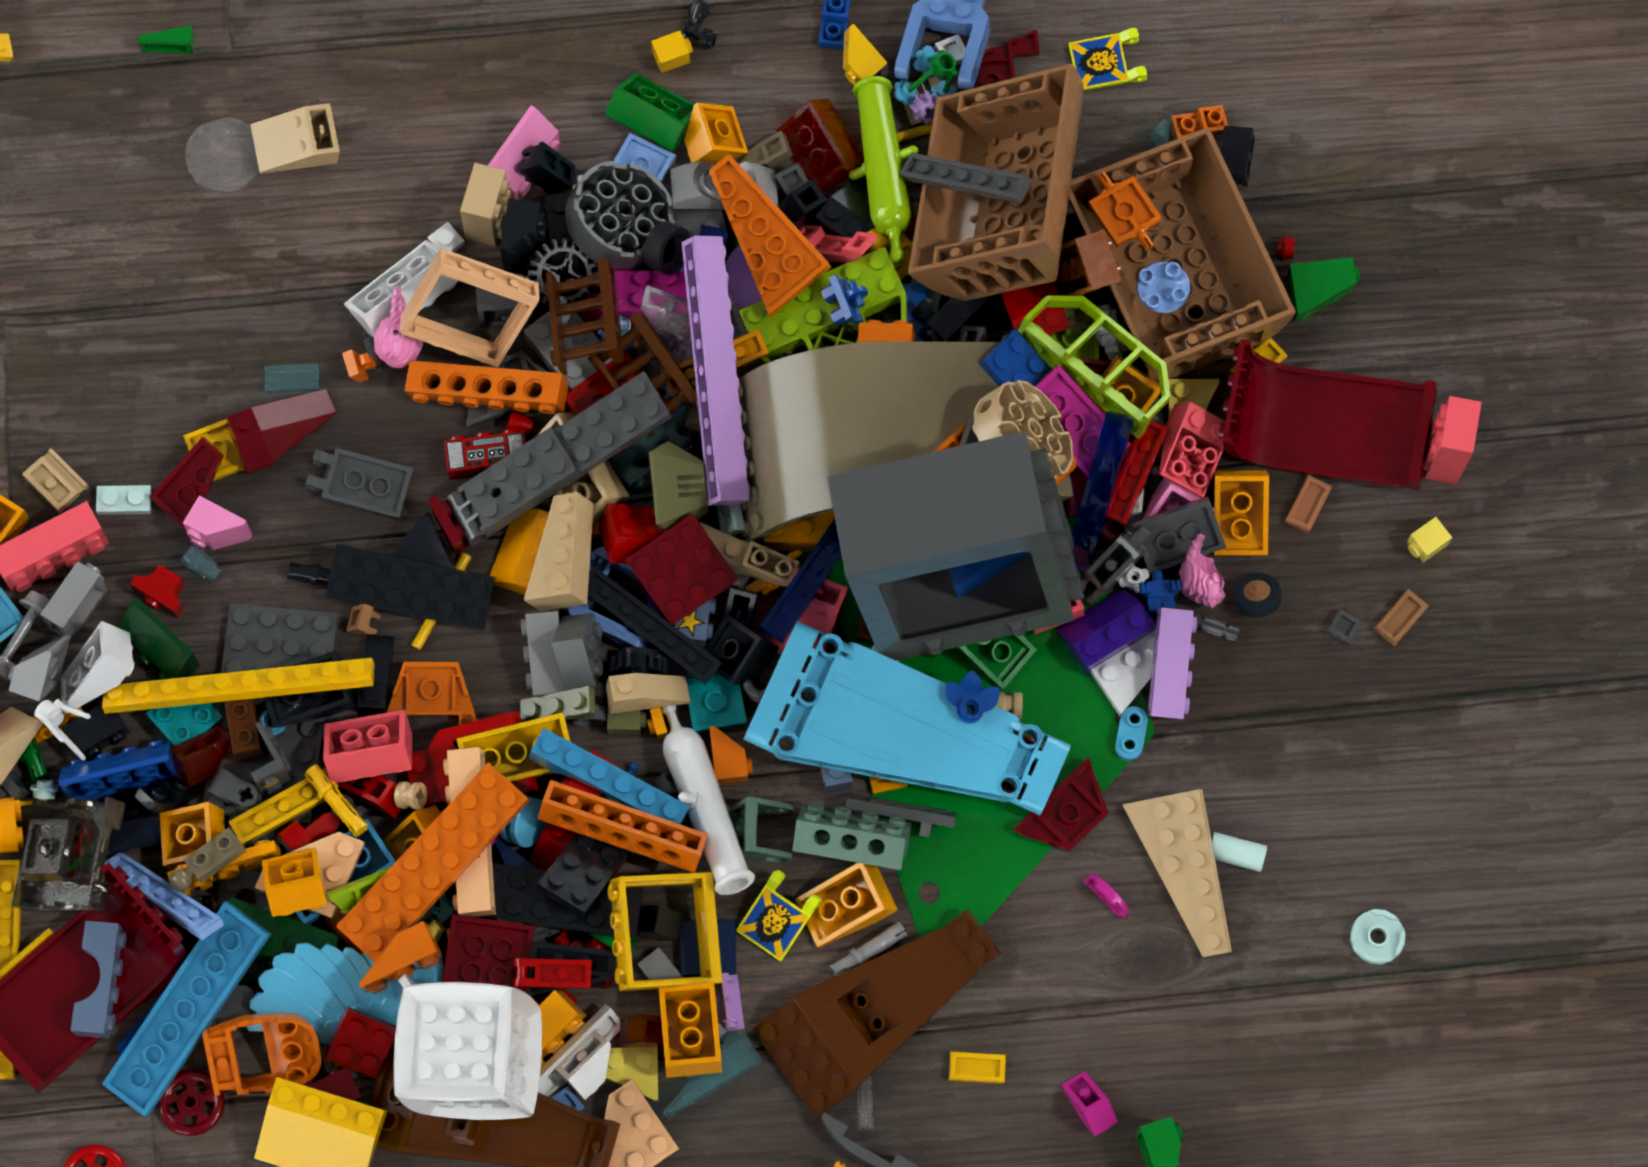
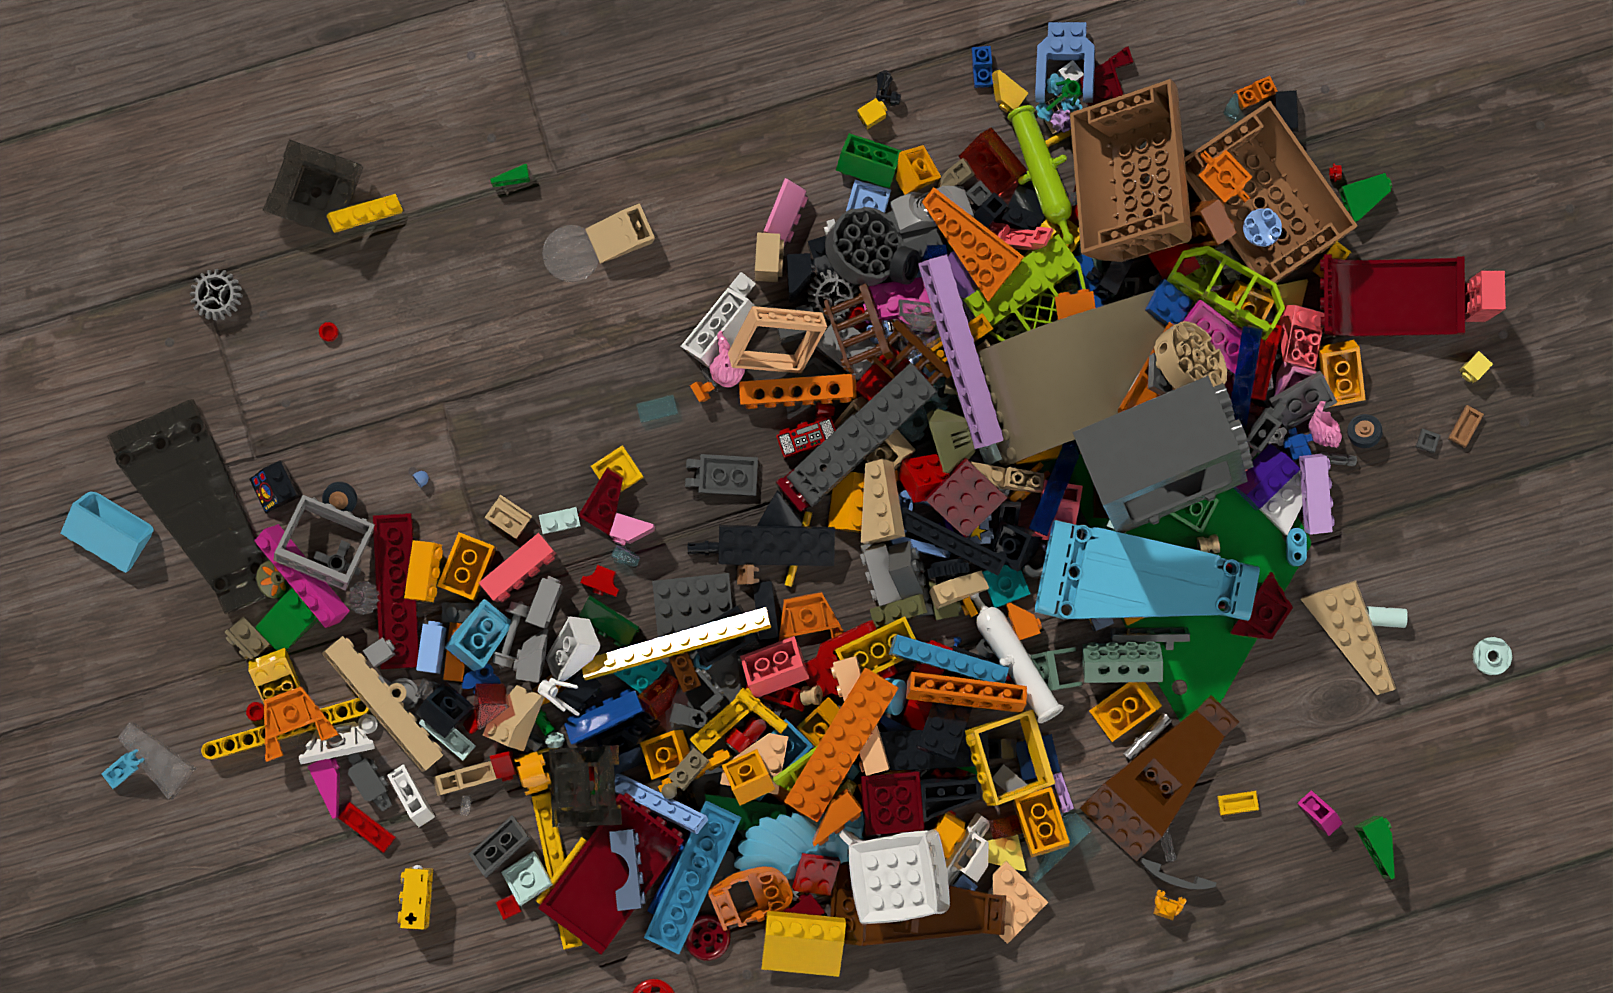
camera: 15 degrees left, 10 degrees up
(275, 427) = (653, 450): dark red wedge -> none
(547, 168) = (805, 220): black hinge -> none
(553, 973) = (940, 804): red plate -> none
(775, 921) = (1078, 729): flag -> none
(849, 298) = (1042, 278): blue hips -> none
(966, 177) = (1110, 177): dark grey plate -> none
(971, 694) = (1186, 547): blue plate -> none
(1102, 60) = (1177, 58): flag -> none
(1107, 895) = (1301, 664): dark pink tile -> none
(1308, 504) = (1386, 357): nougat tile -> none

